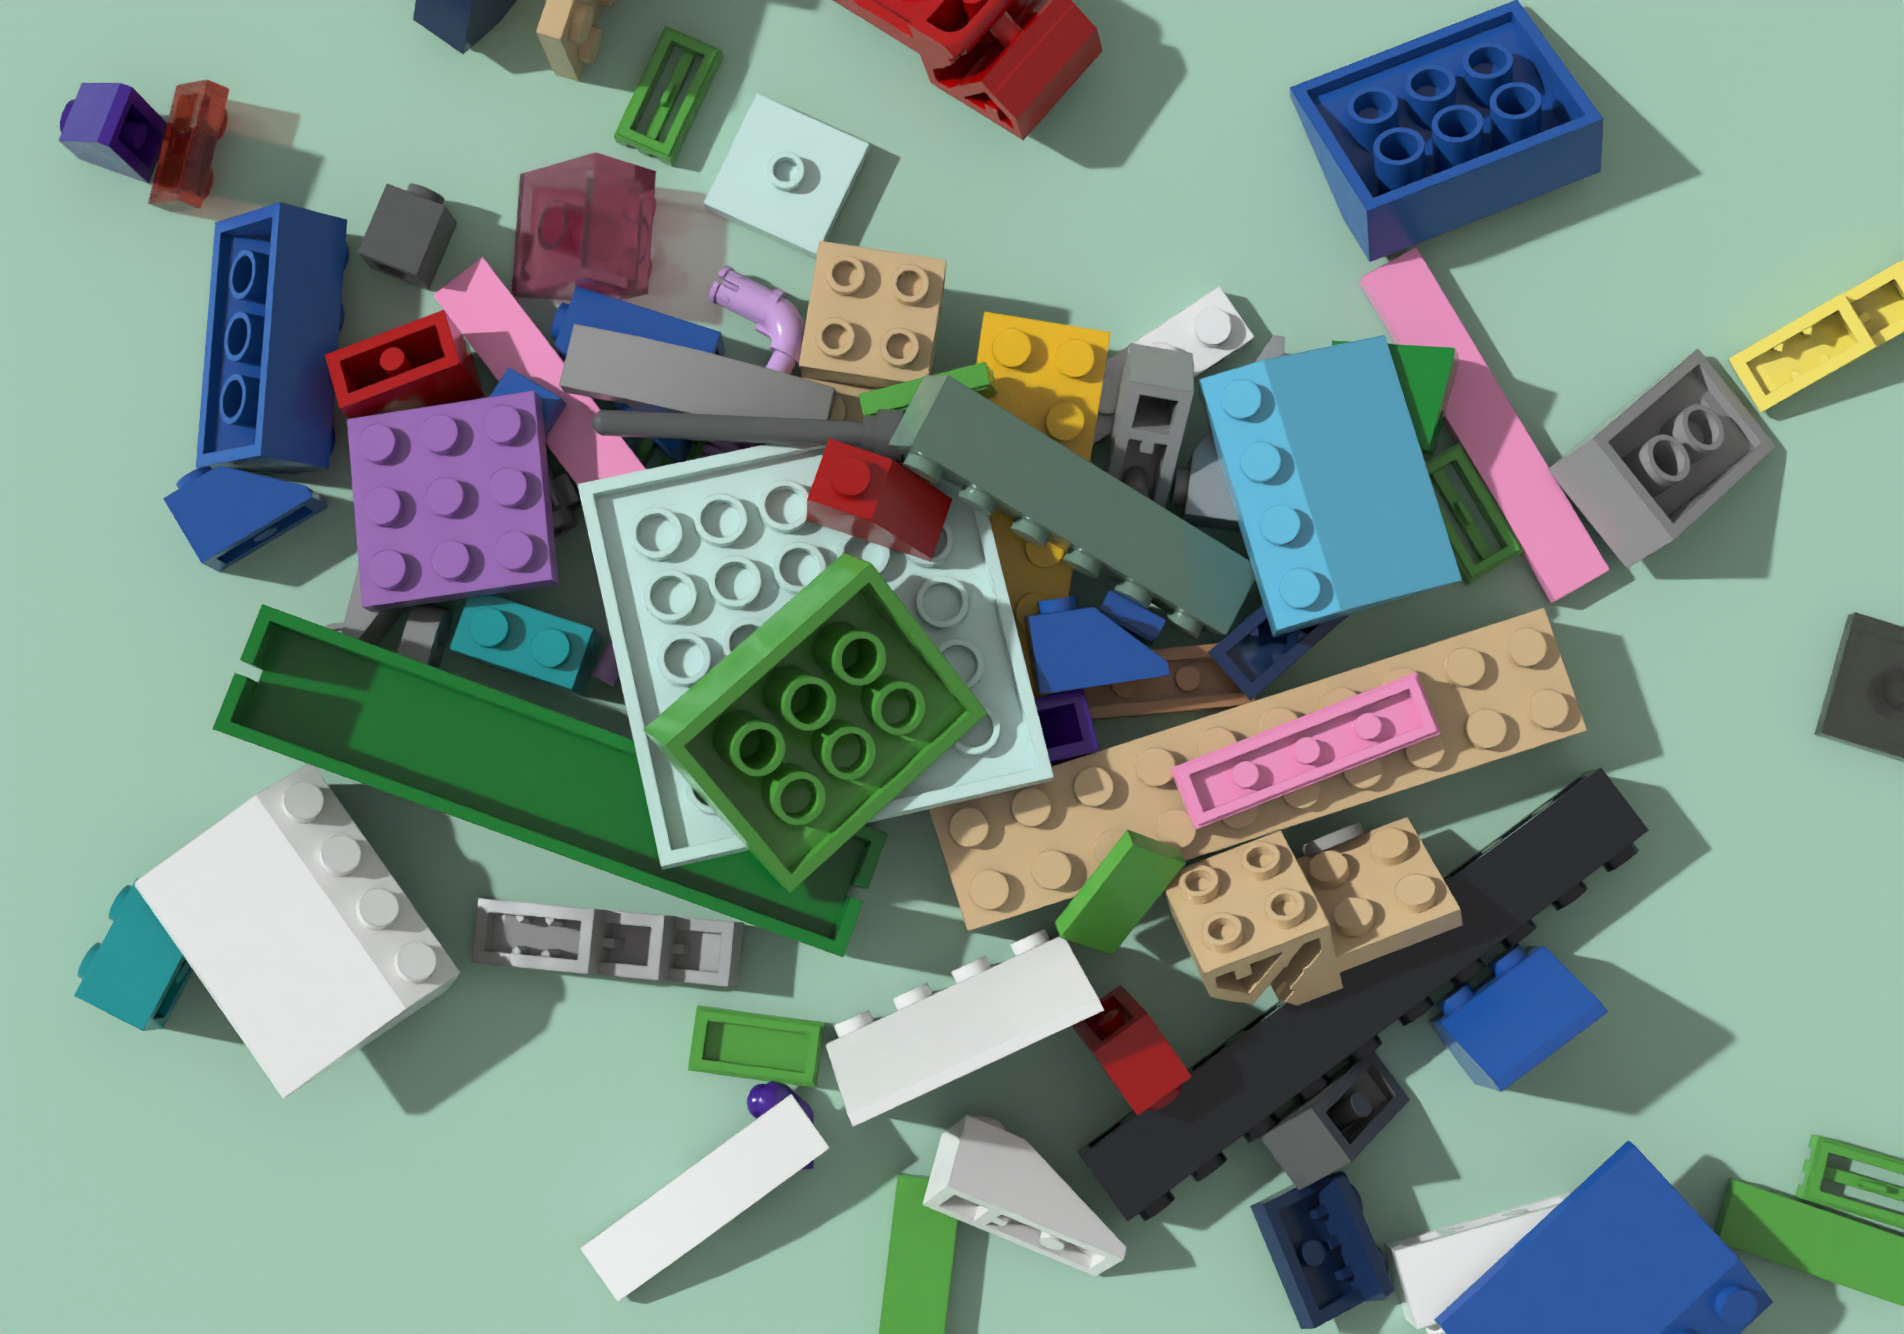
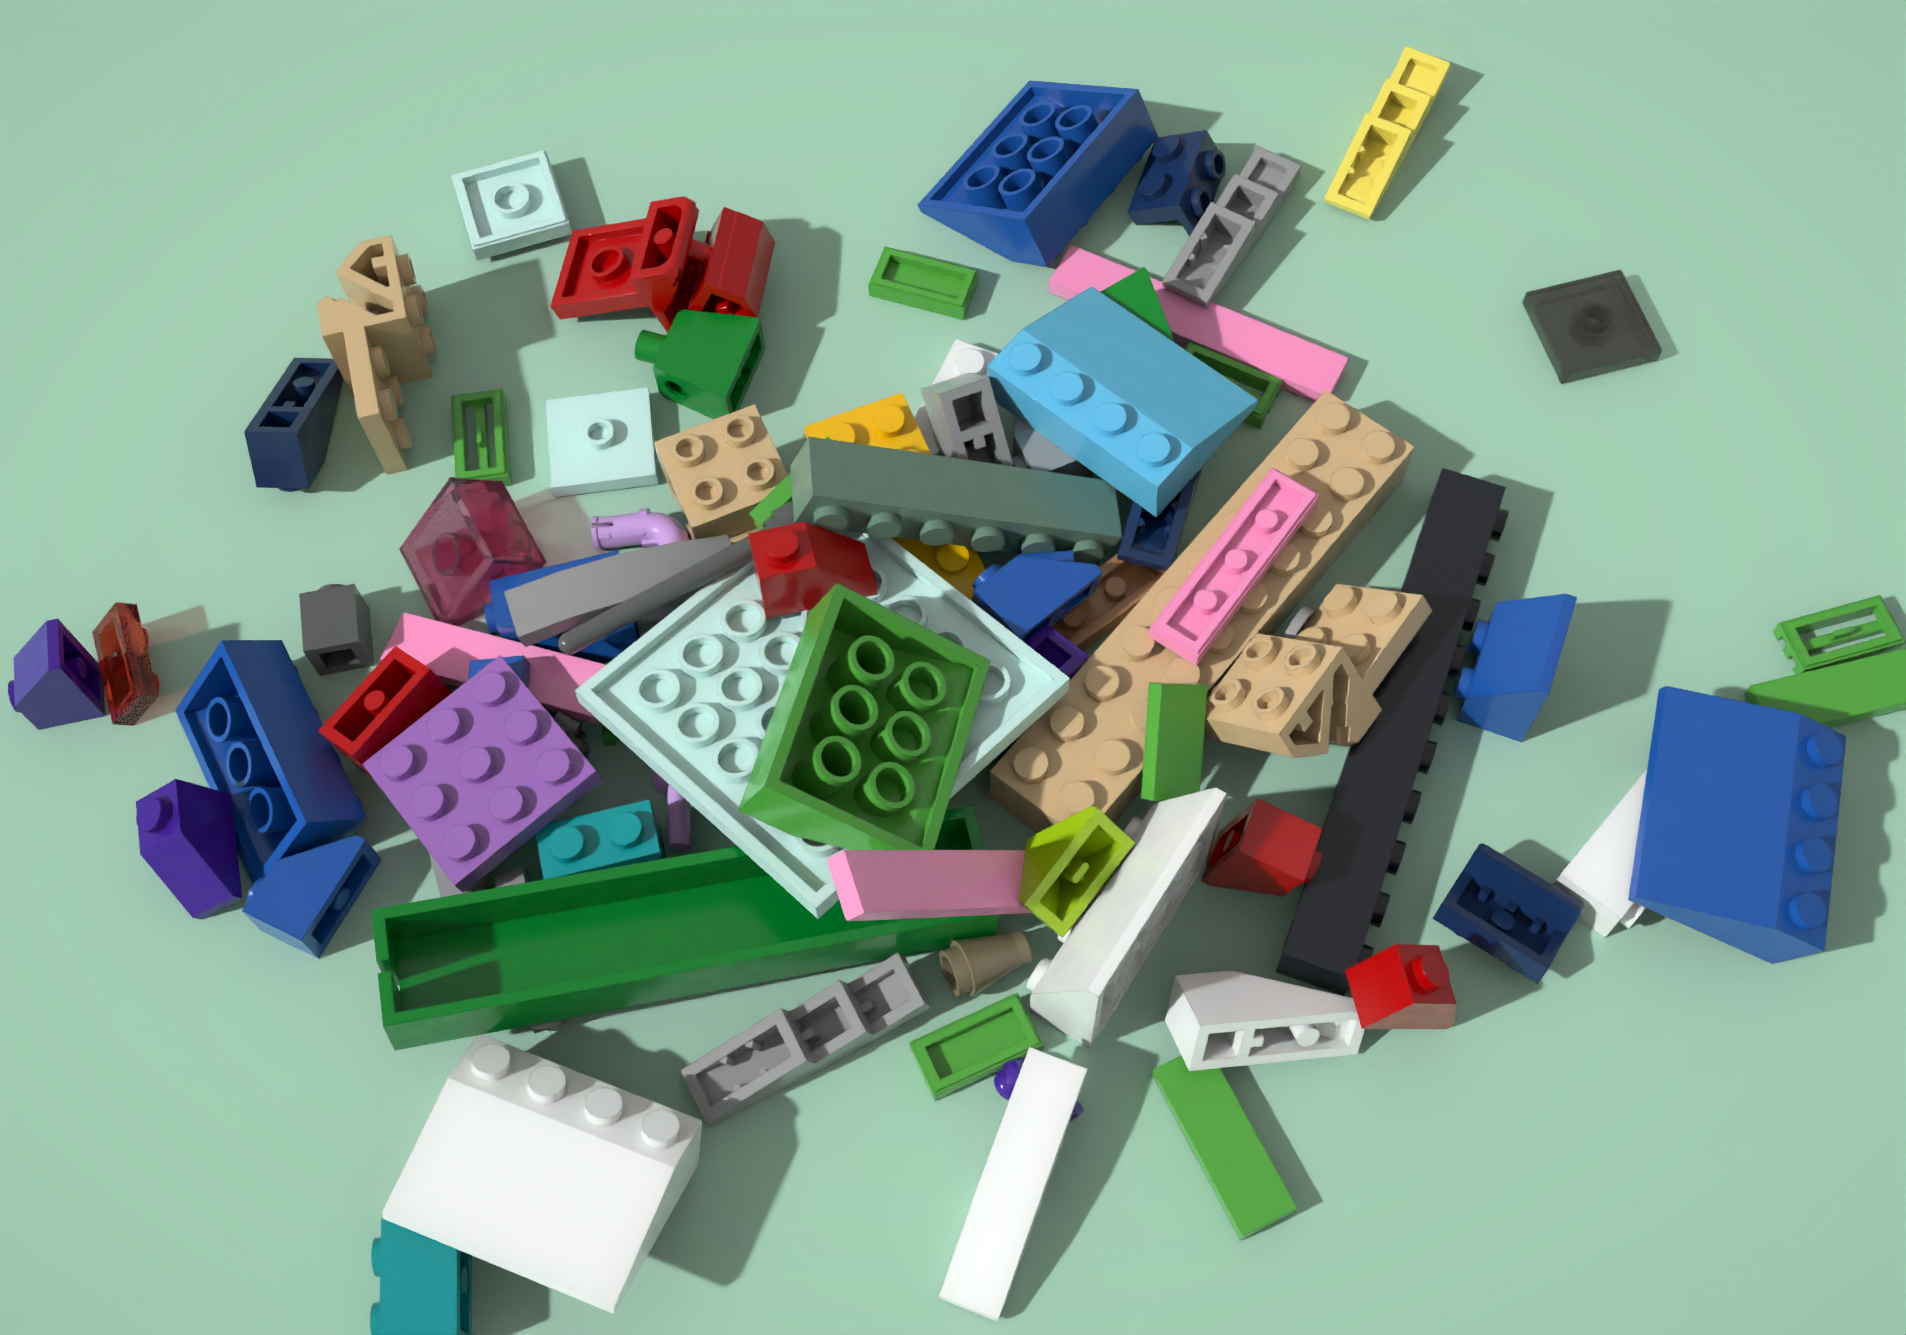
camera: 30 degrees left, 20 degrees down
(155, 392) = (191, 845): none -> dark purple slope
(798, 926) = (927, 883): none -> bright pink tile
(811, 974) = (981, 961): none -> dark tan cone
(933, 954) = (1069, 866): none -> lime slope
(943, 150) = (704, 359): none -> green torso
(1161, 1264) = (1403, 989): none -> red slope
(1233, 191) = (924, 283): none -> bright green tile
(1336, 1122) = (1445, 822): dark grey slope -> none
(1585, 240) = (1178, 180): none -> dark blue bracket
(1602, 333) = (1232, 226): none -> light grey slope
(1662, 459) = (1328, 277): light grey slope -> none

